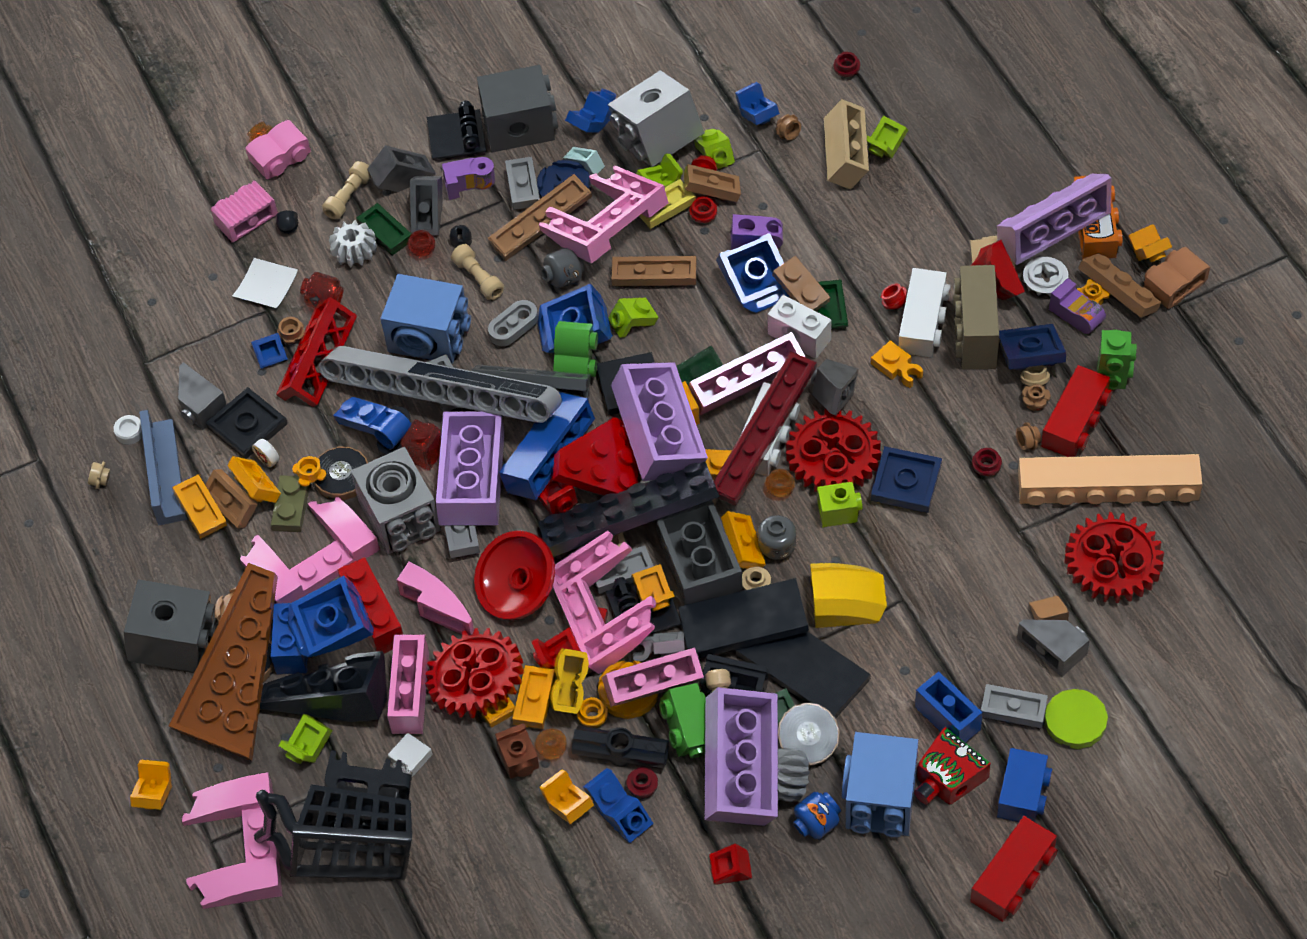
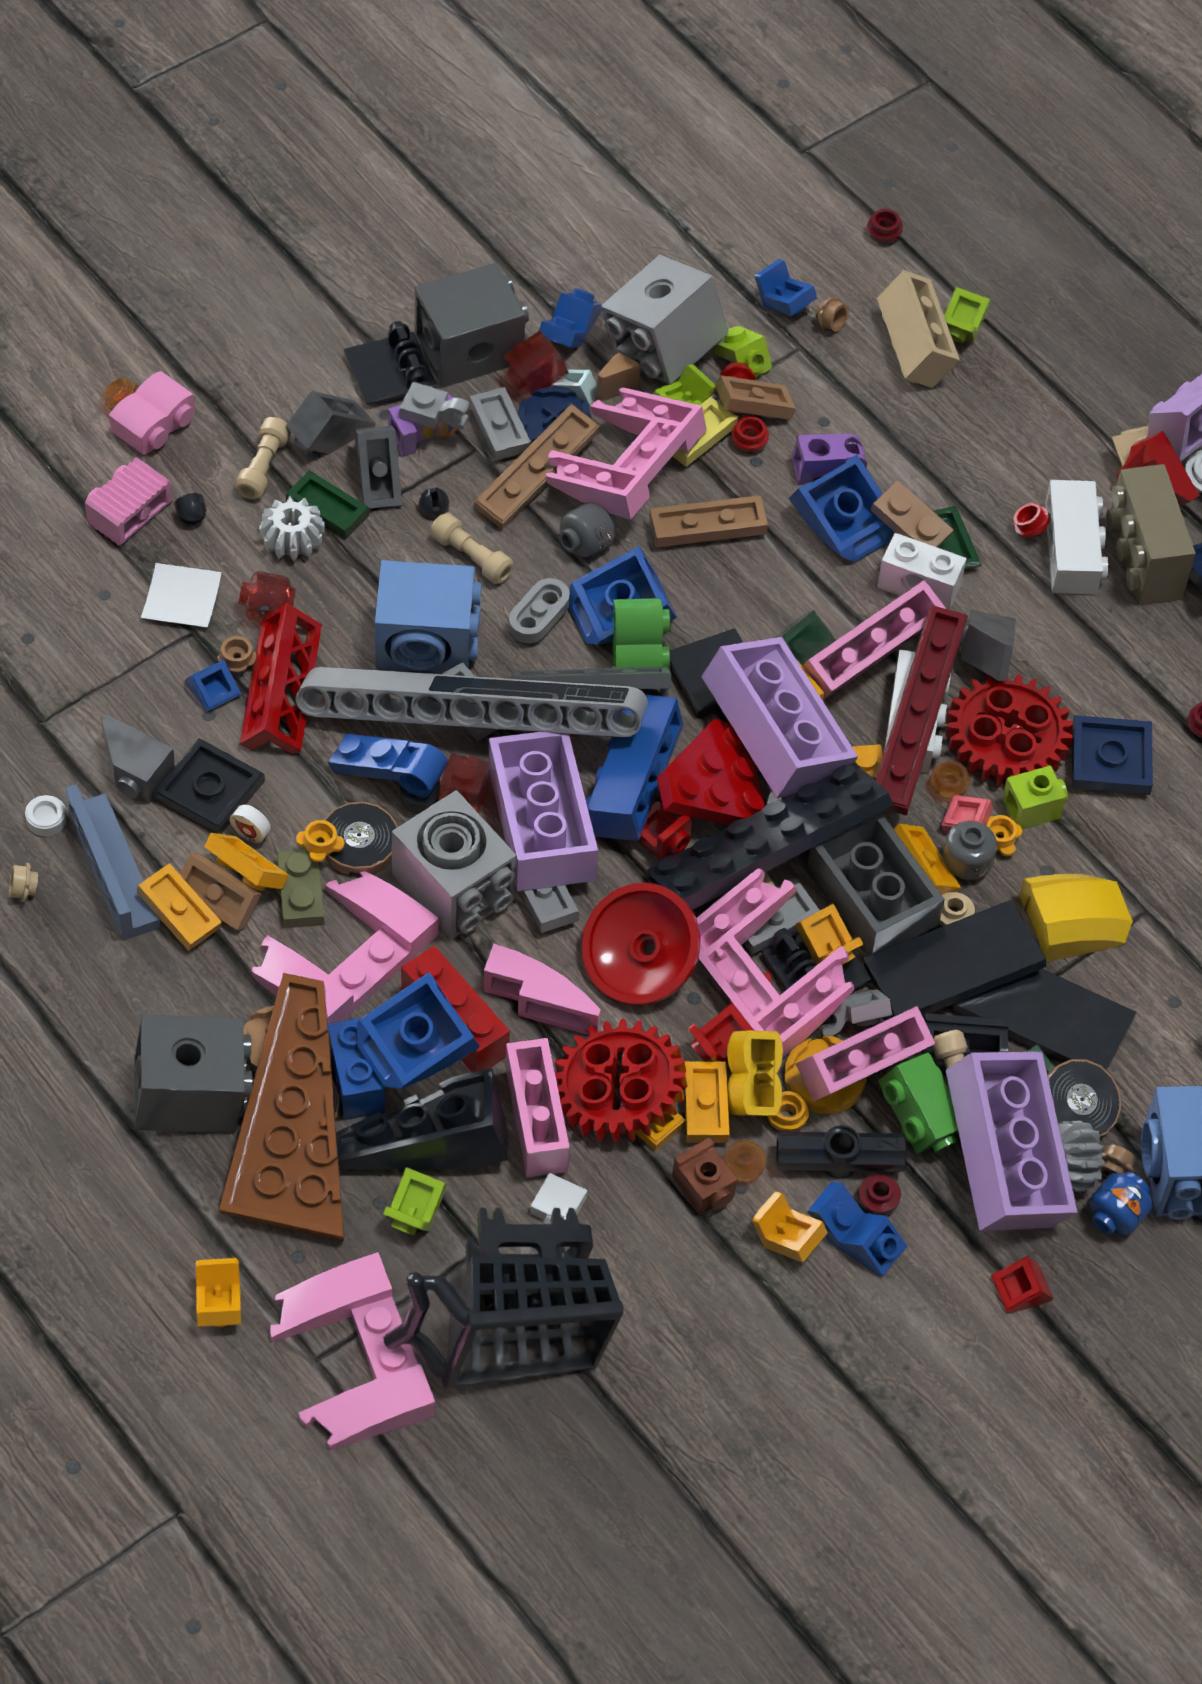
camera: 20 degrees left, 0 degrees up
(421, 243) = (381, 511): clear red plate -> none
(470, 164) = (430, 405): none -> light grey plate
(557, 142) = (535, 364): none -> clear red brick
(616, 155) = (617, 374): none -> medium nougat slope
(630, 313) = (694, 580): lime bracket -> none
(786, 507) = (966, 809): none -> coral tile
(807, 521) = (1008, 829): none -> light orange plate
(823, 782) = (1117, 1160): none -> medium nougat plate
(895, 361) = (1054, 605): light orange plate -> none

